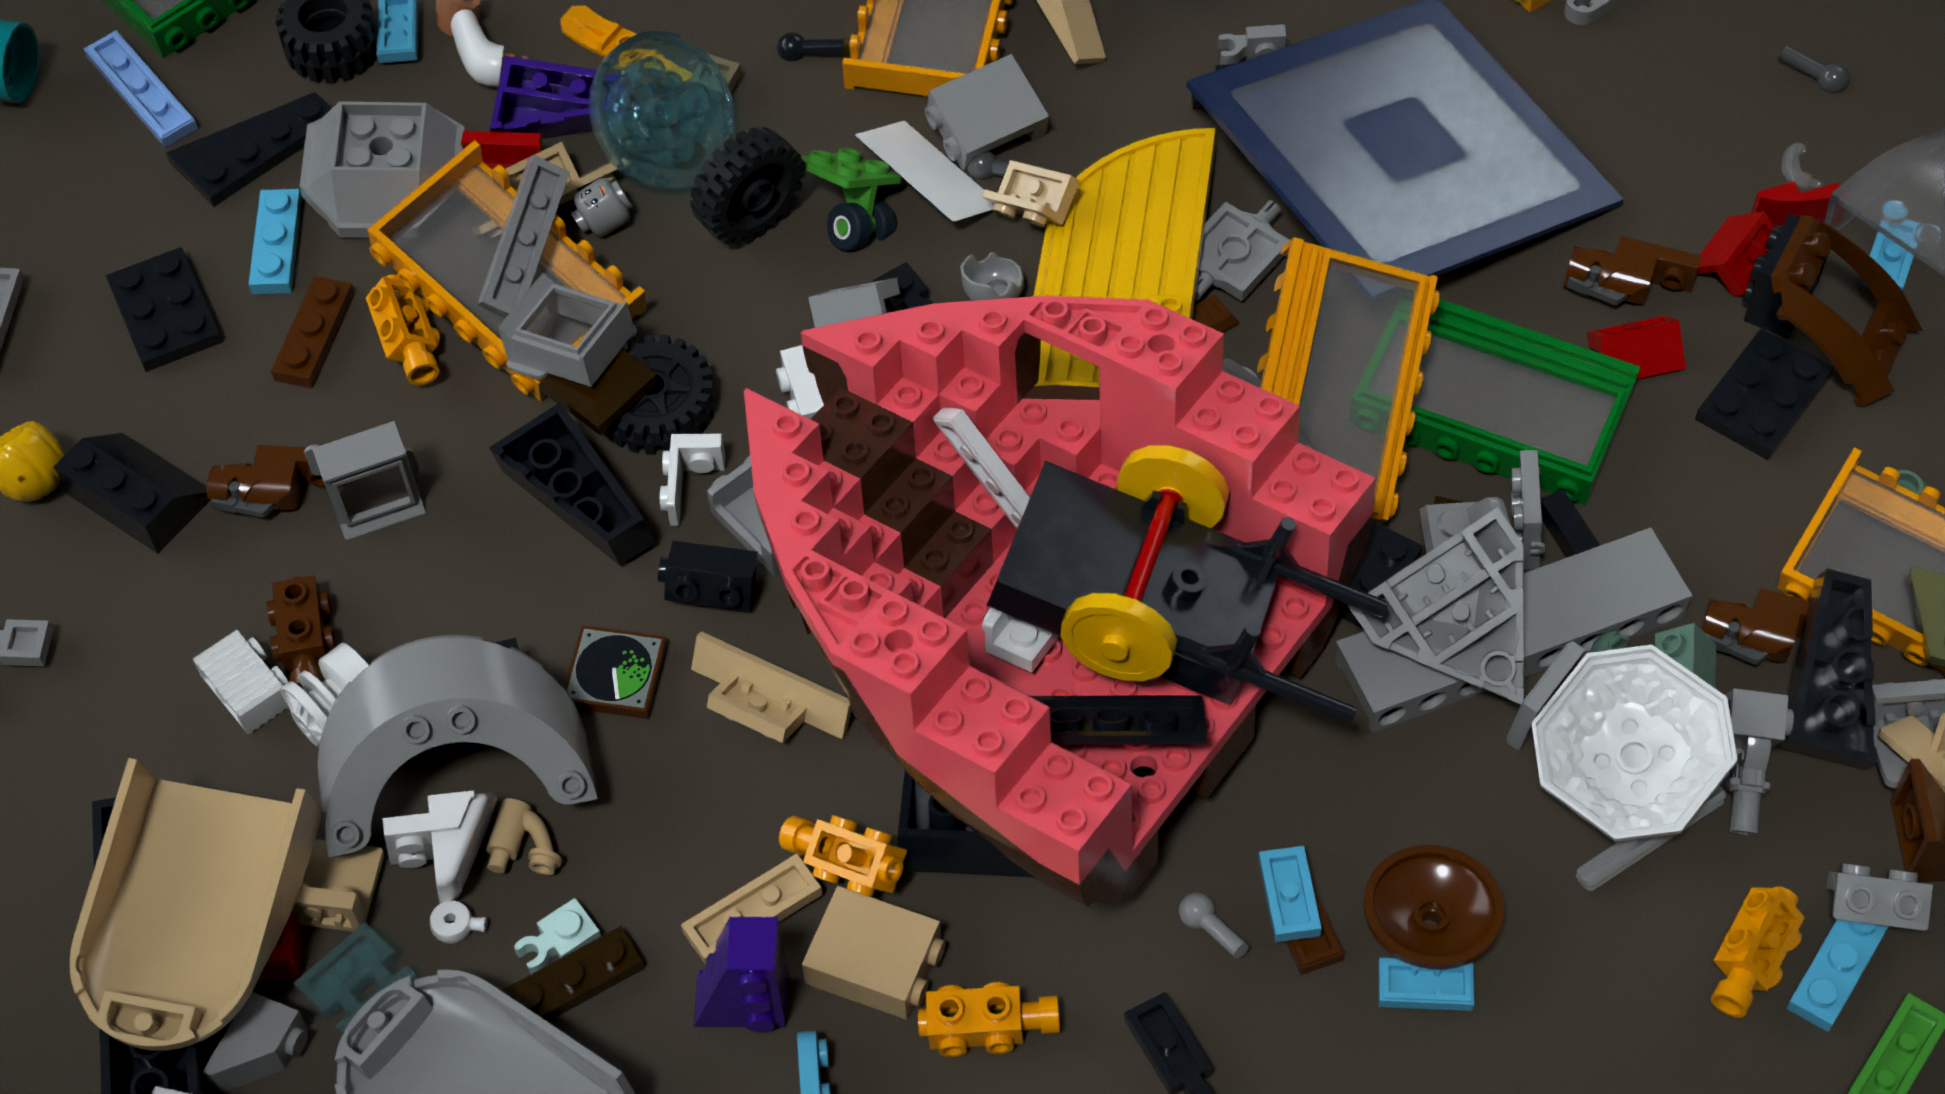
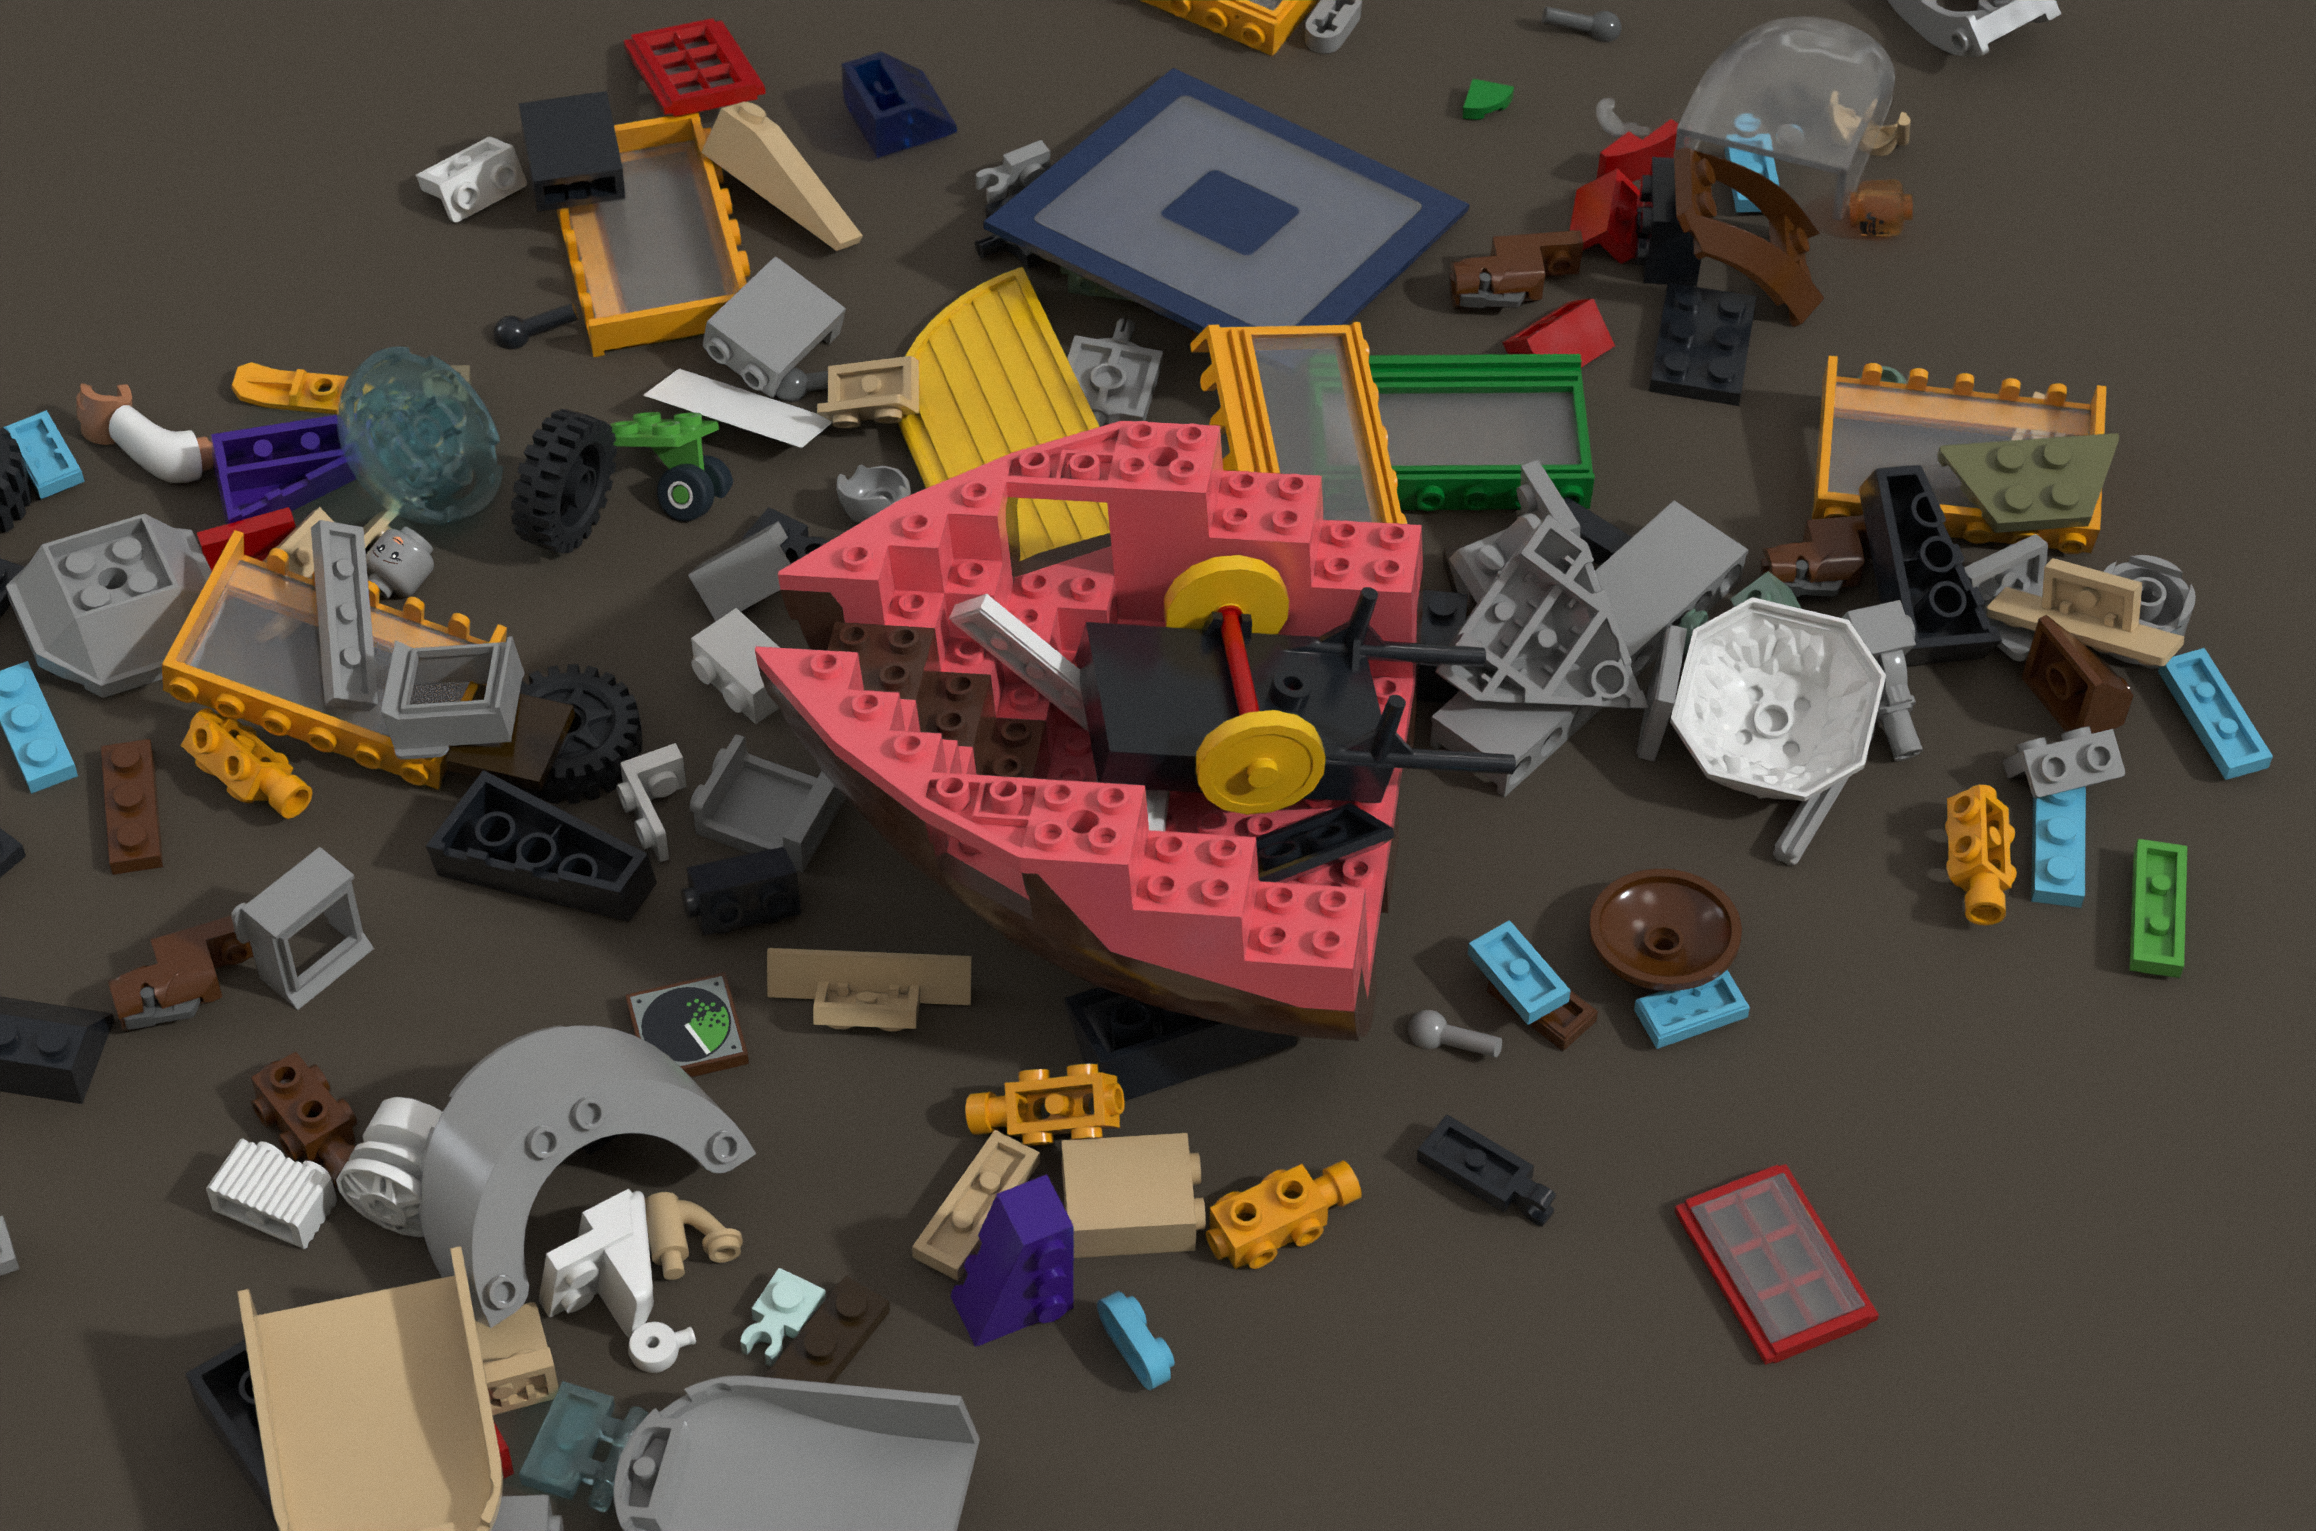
camera: 30 degrees left, 5 degrees down
(1691, 109) = (1486, 98): none -> green tile

